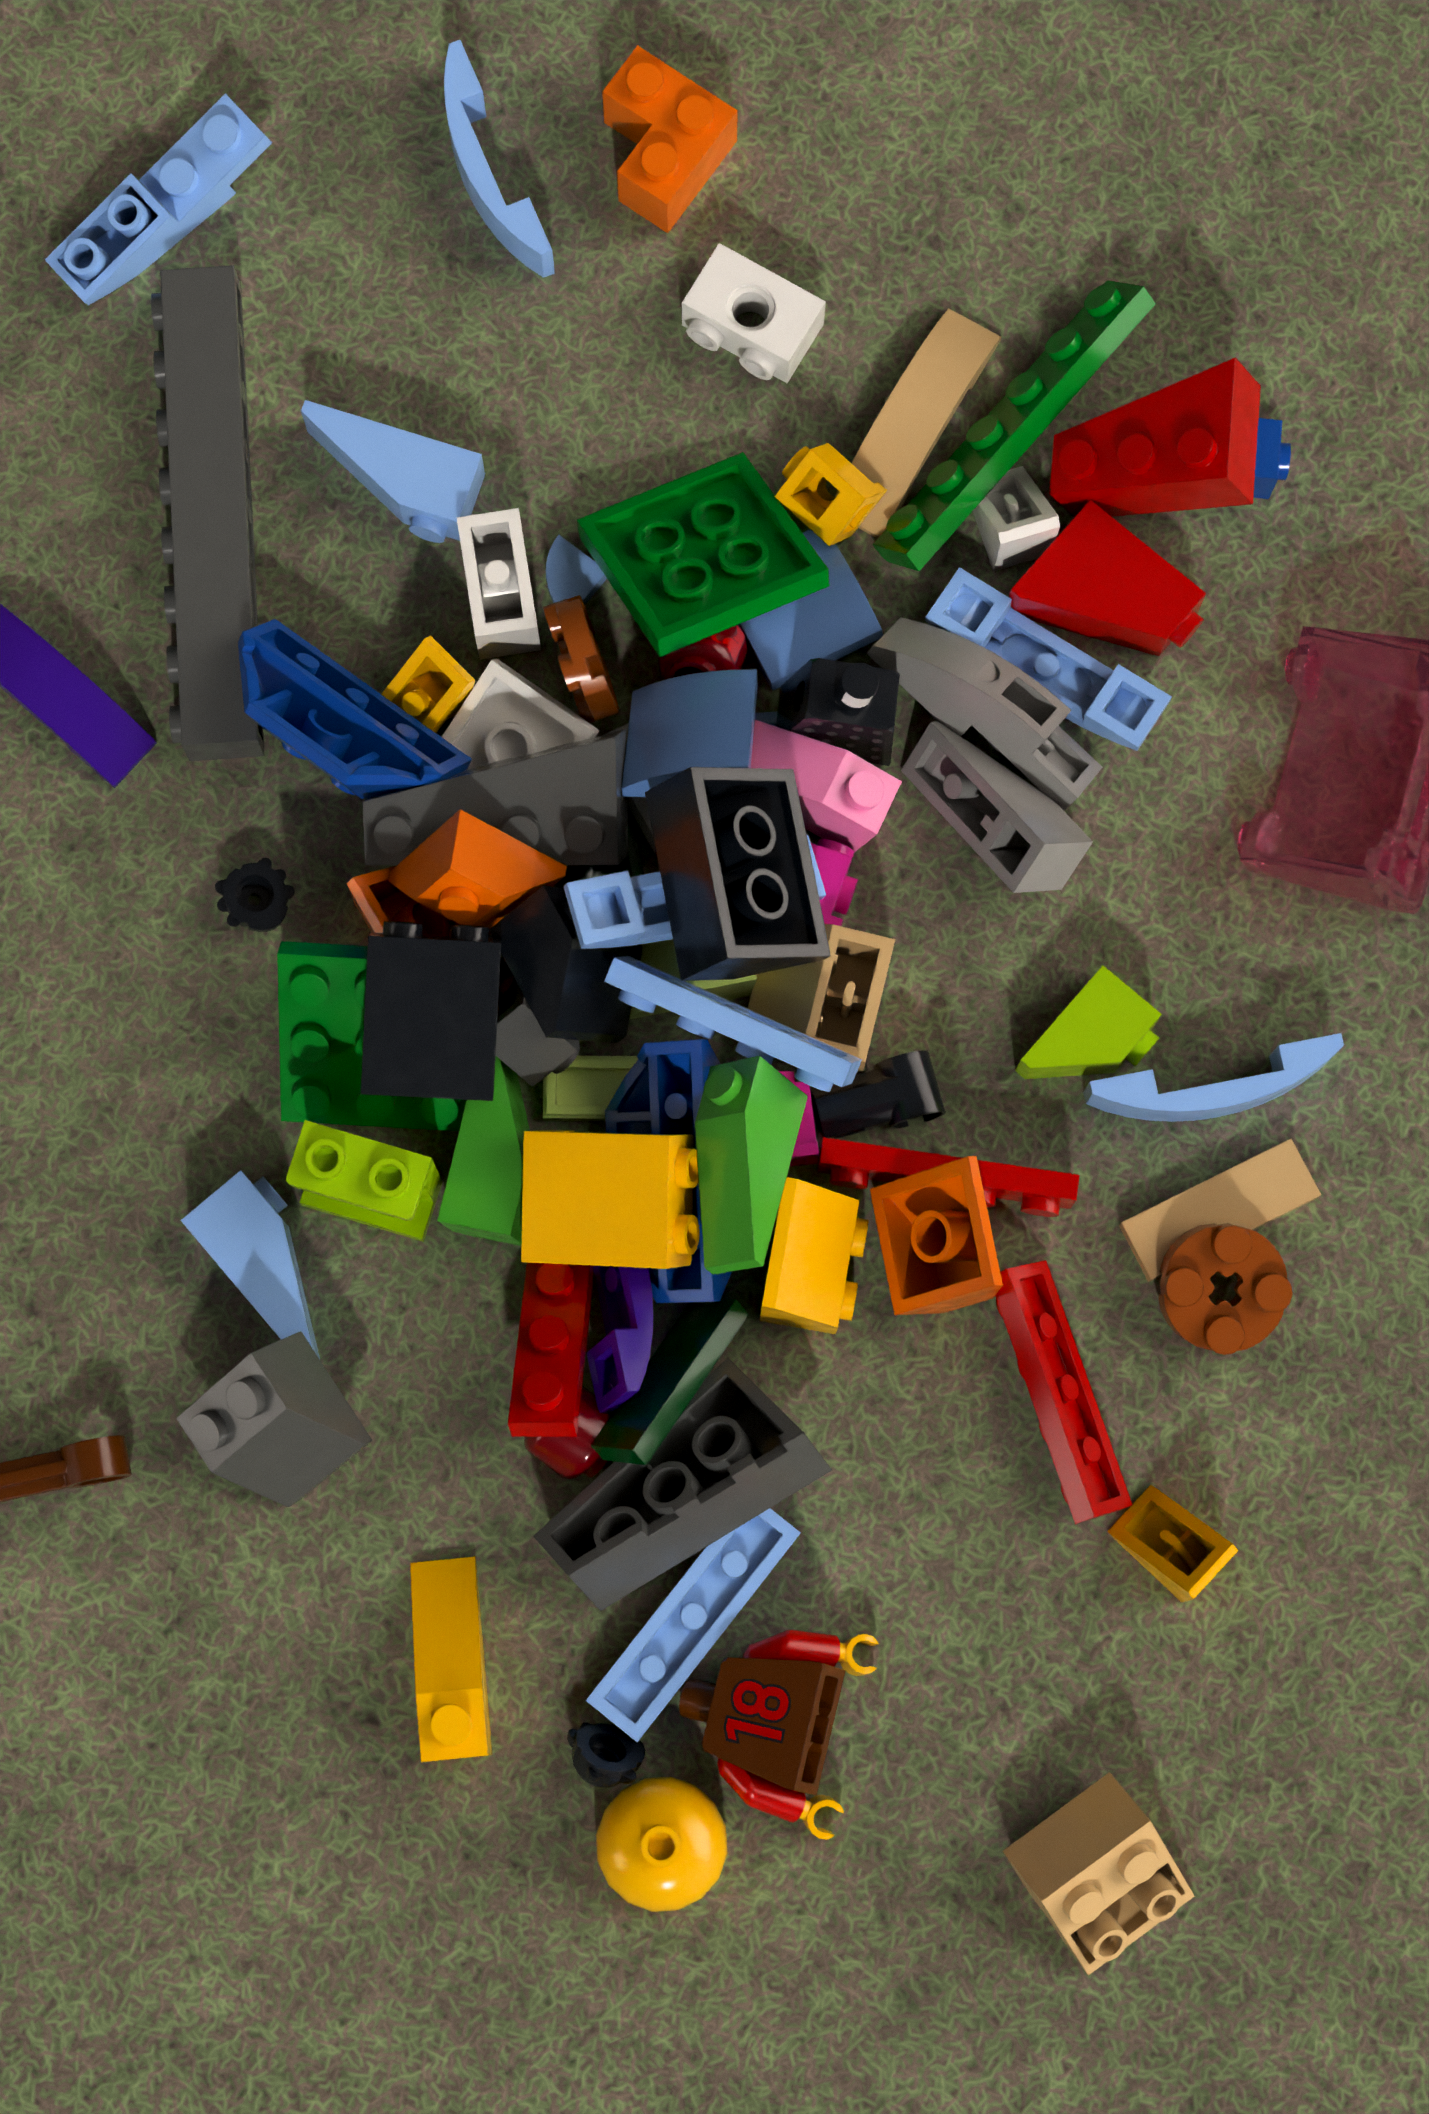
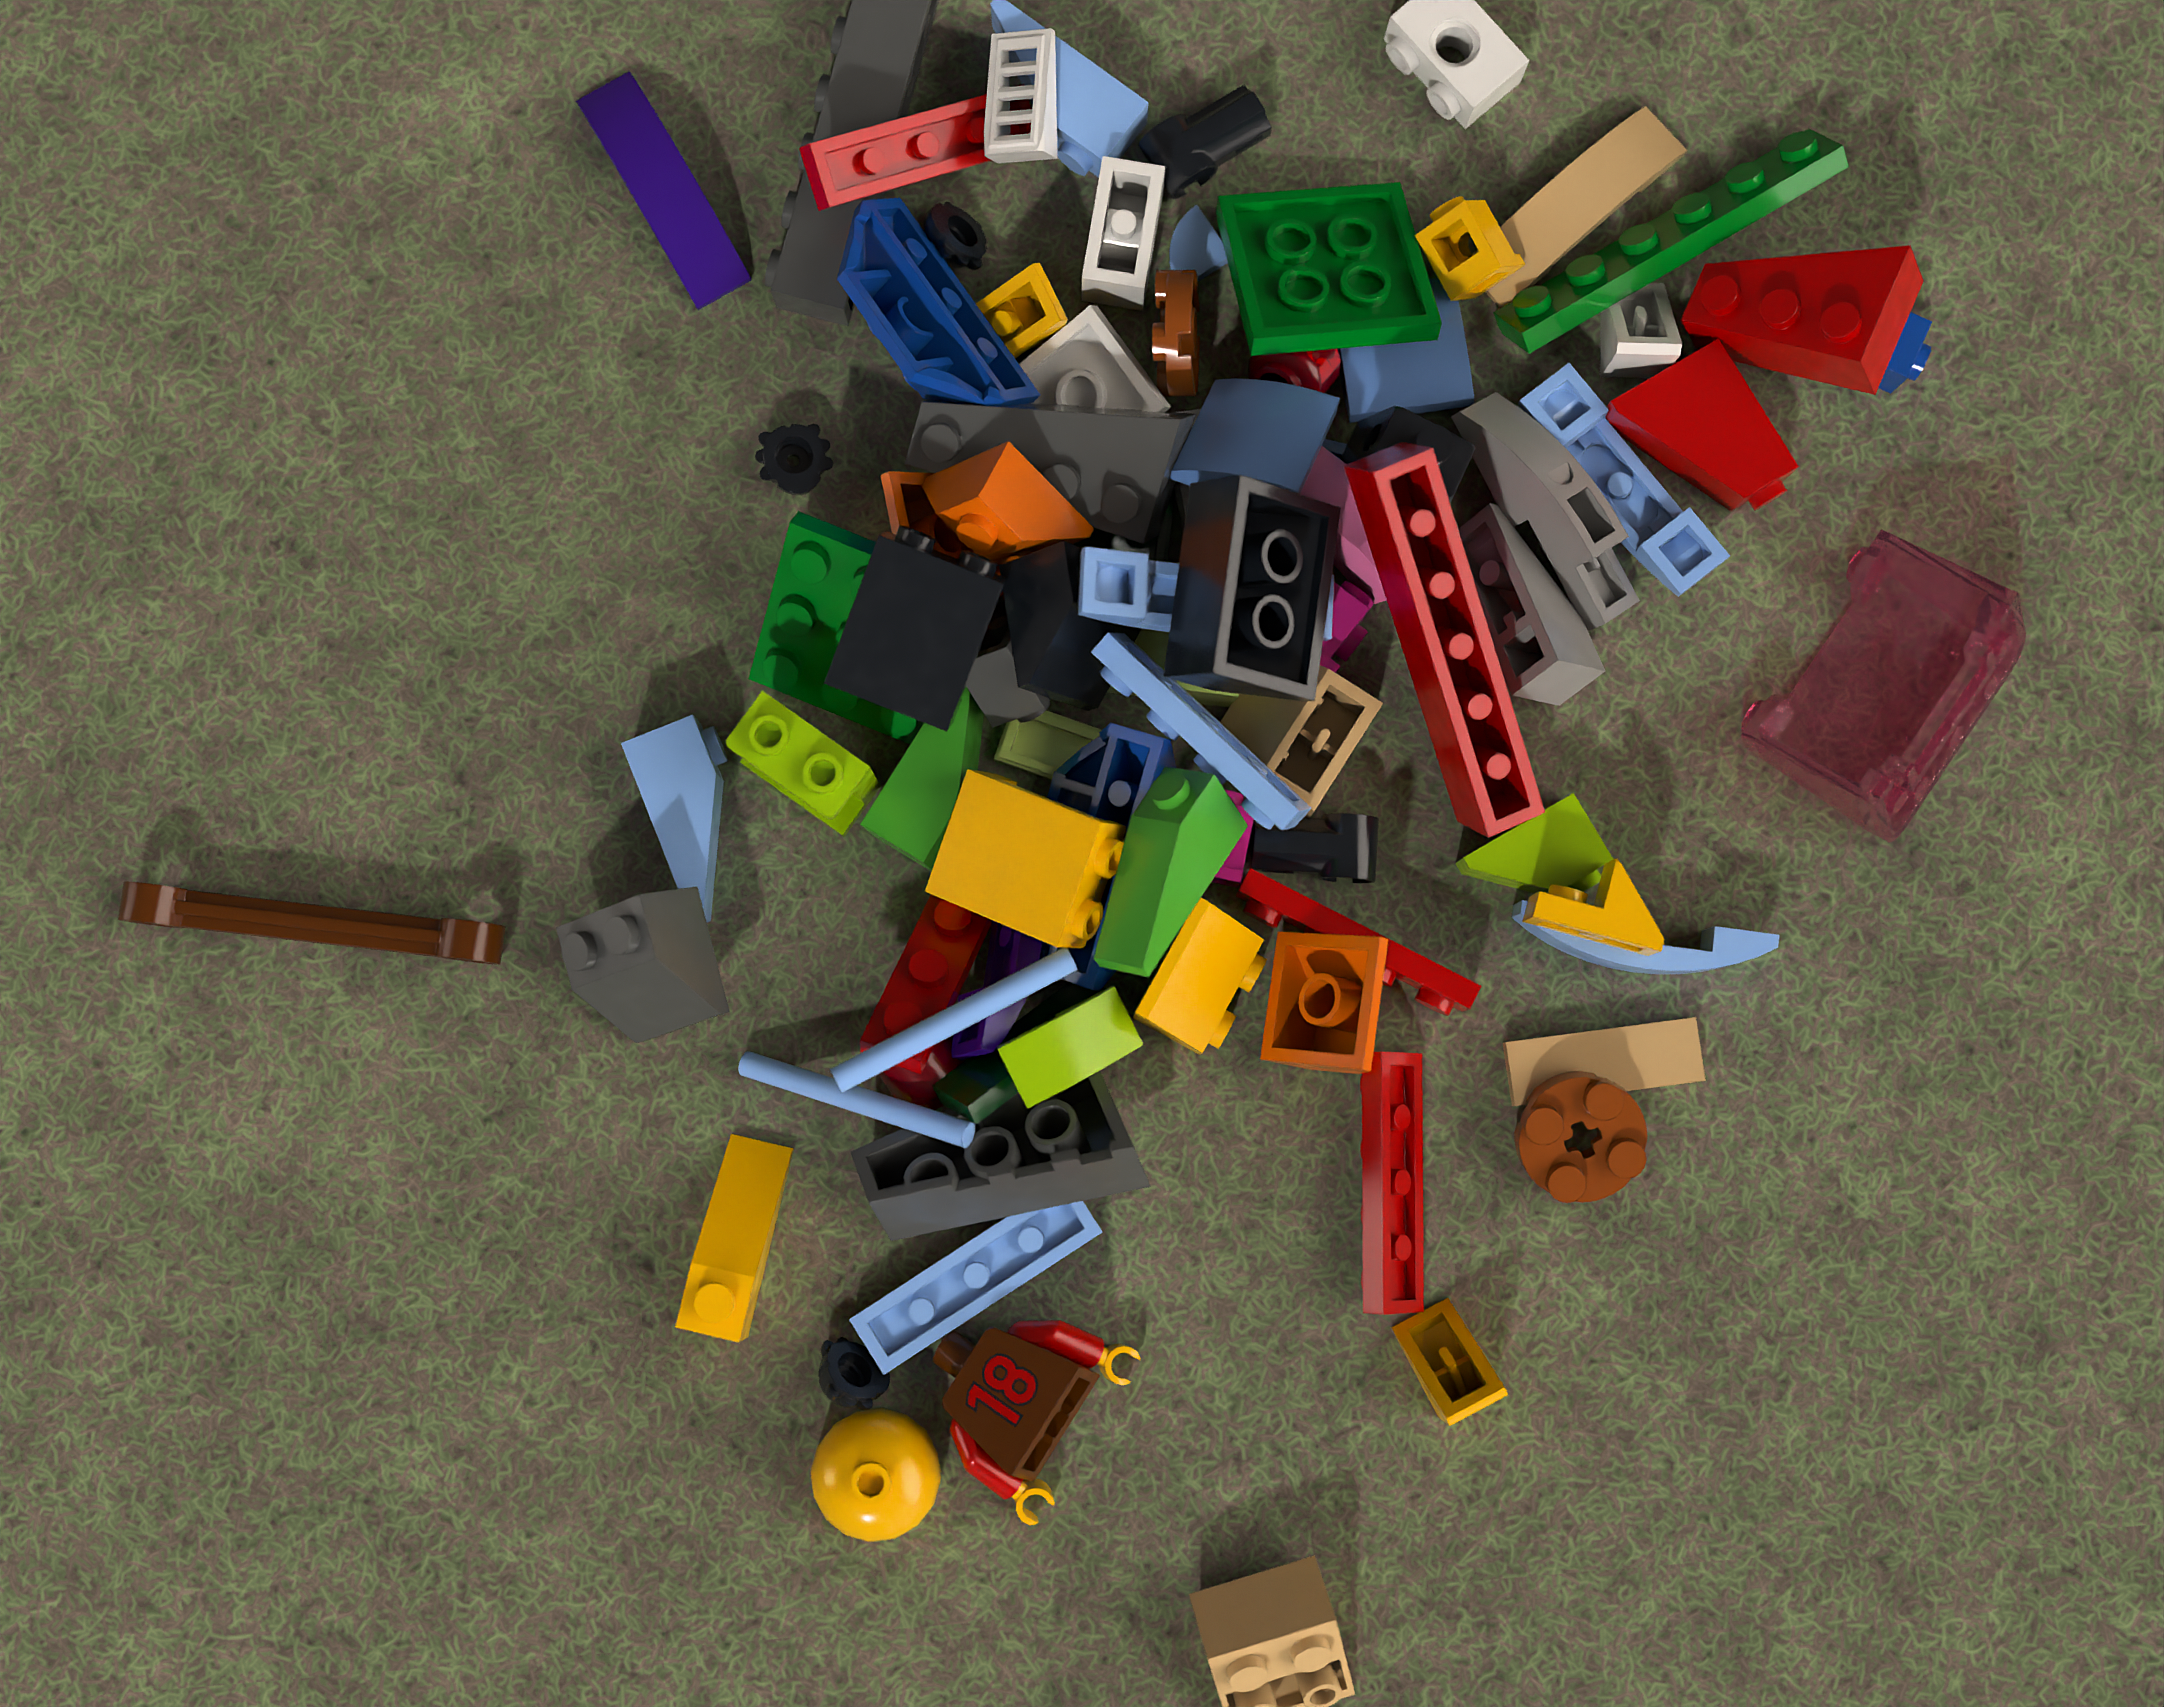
camera: 20 degrees right, 5 degrees up
(279, 565) = (900, 152): none -> plate
(340, 637) = (955, 236): none -> black animal
(394, 520) = (1042, 141): none -> white slope
(522, 1484) = (857, 1099): none -> light blue bar
(547, 471) = (1199, 144): none -> black piece
(590, 1372) = (953, 1019): none -> light blue bar
(710, 1360) = (1070, 1046): none -> lime slope
(932, 859) = (1445, 637): none -> red brick
(1182, 1068) = (1614, 920): none -> yellow slope

